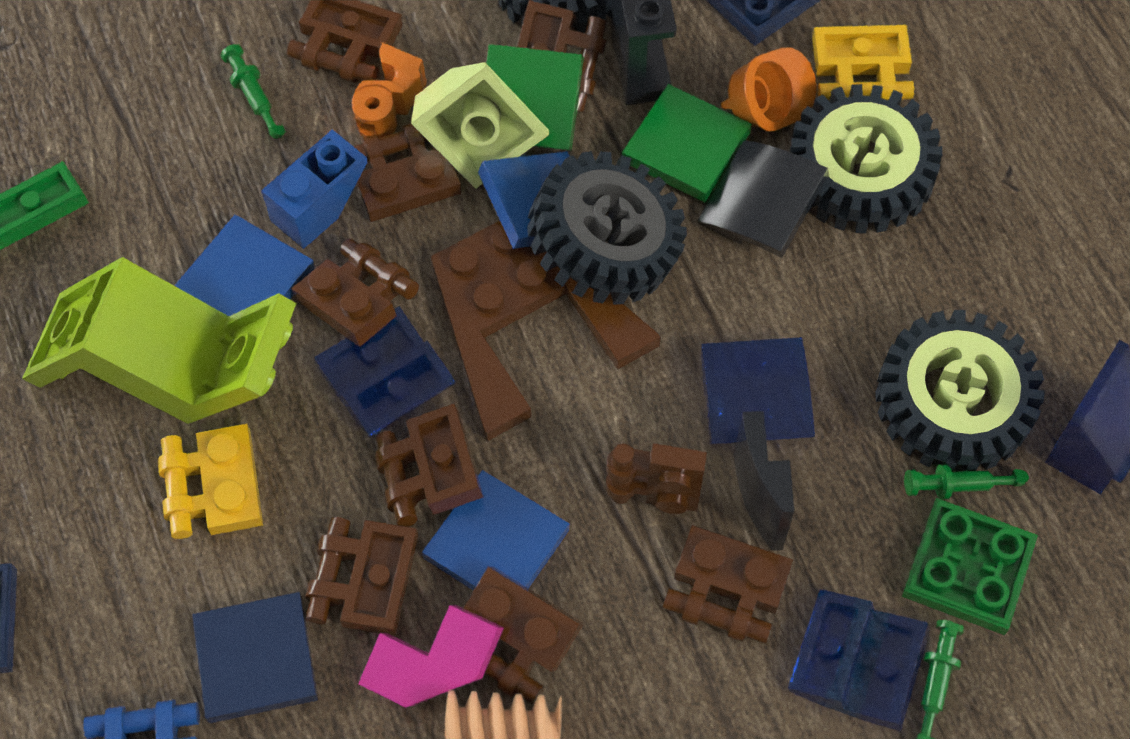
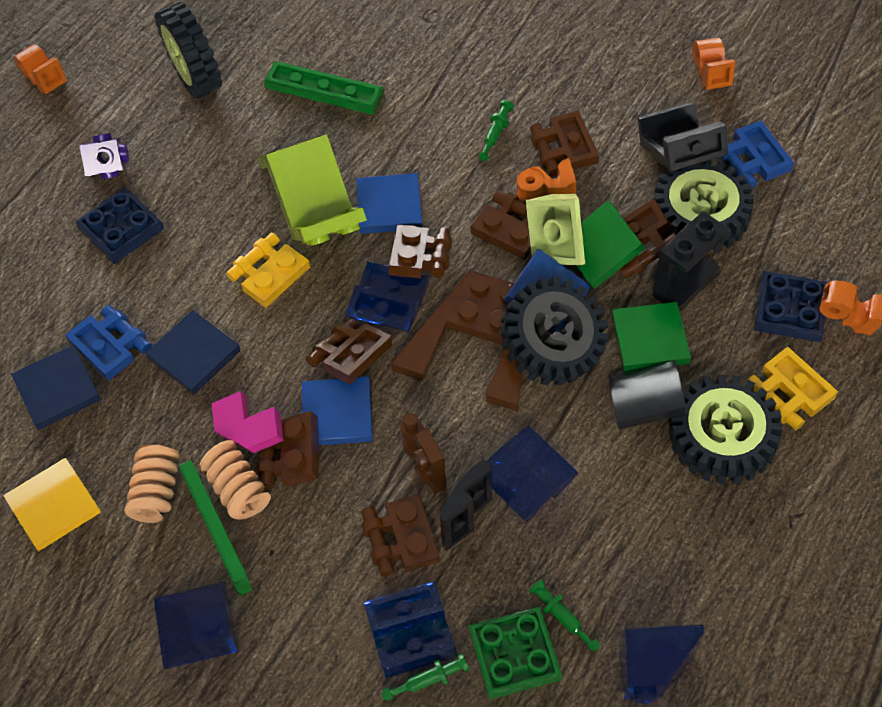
camera: 55 degrees right, 5 degrees down
(314, 188) = (458, 192): blue slope -> none
(377, 580) = (272, 372): reddish brown plate -> none
(772, 89) = (724, 351): orange piece -> none
(971, 358) = (597, 593): wheel -> none

